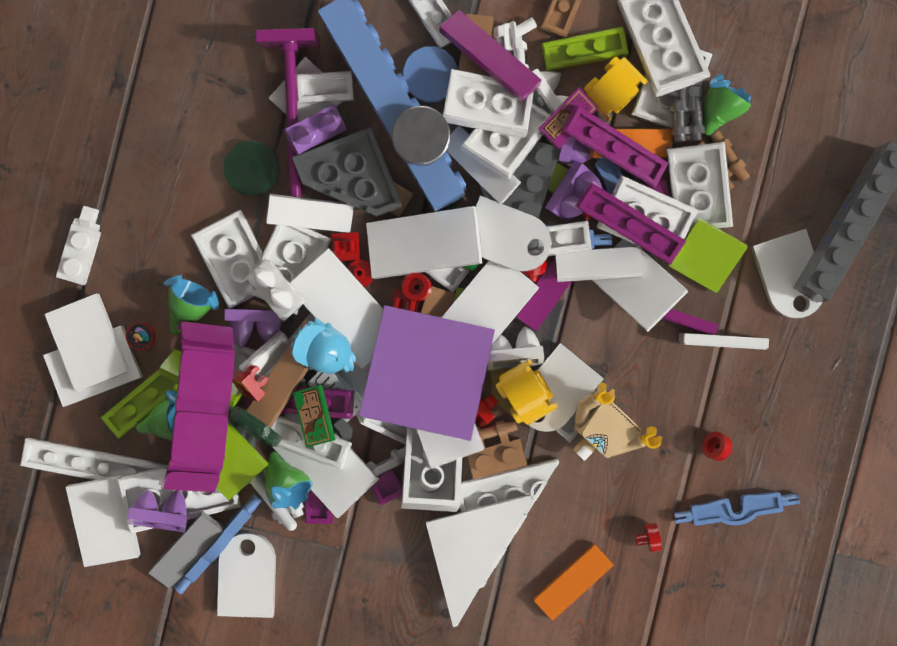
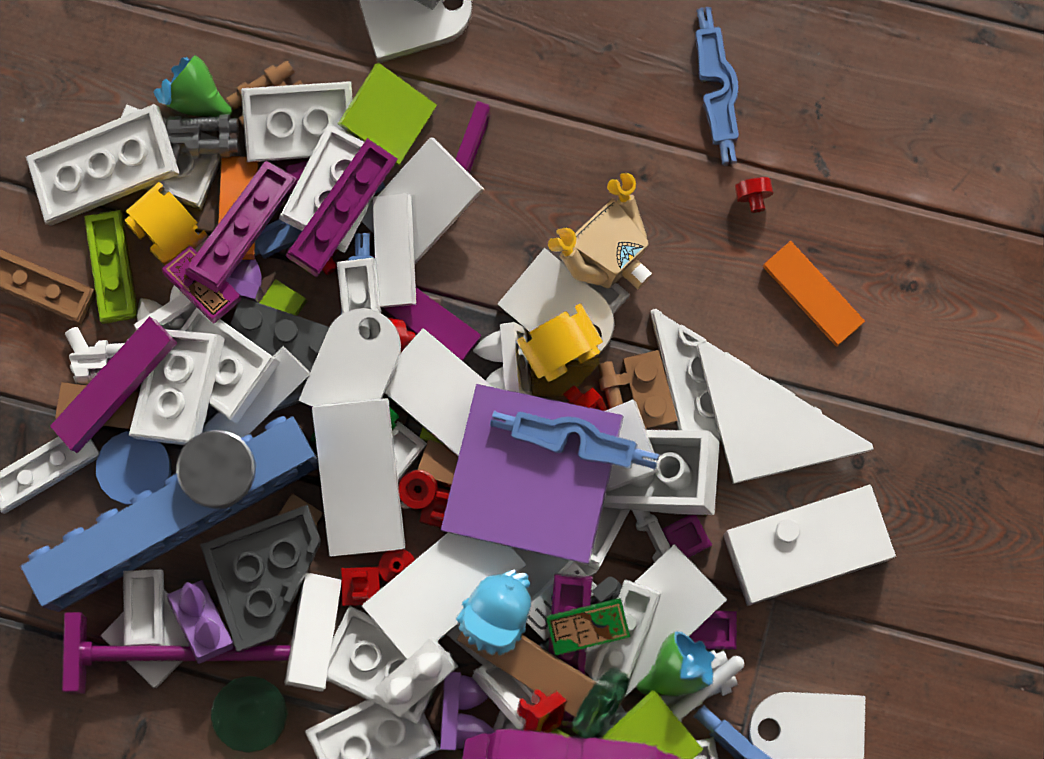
camera: 85 degrees left, 10 degrees down
(380, 578) = (809, 545): none -> white brick
(446, 419) = (593, 446): none -> medium blue piece
(570, 190) = (297, 285): medium lavender tile -> none
(717, 446) = (635, 107): red tile -> none
(723, 341) = (499, 97): white tile -> none

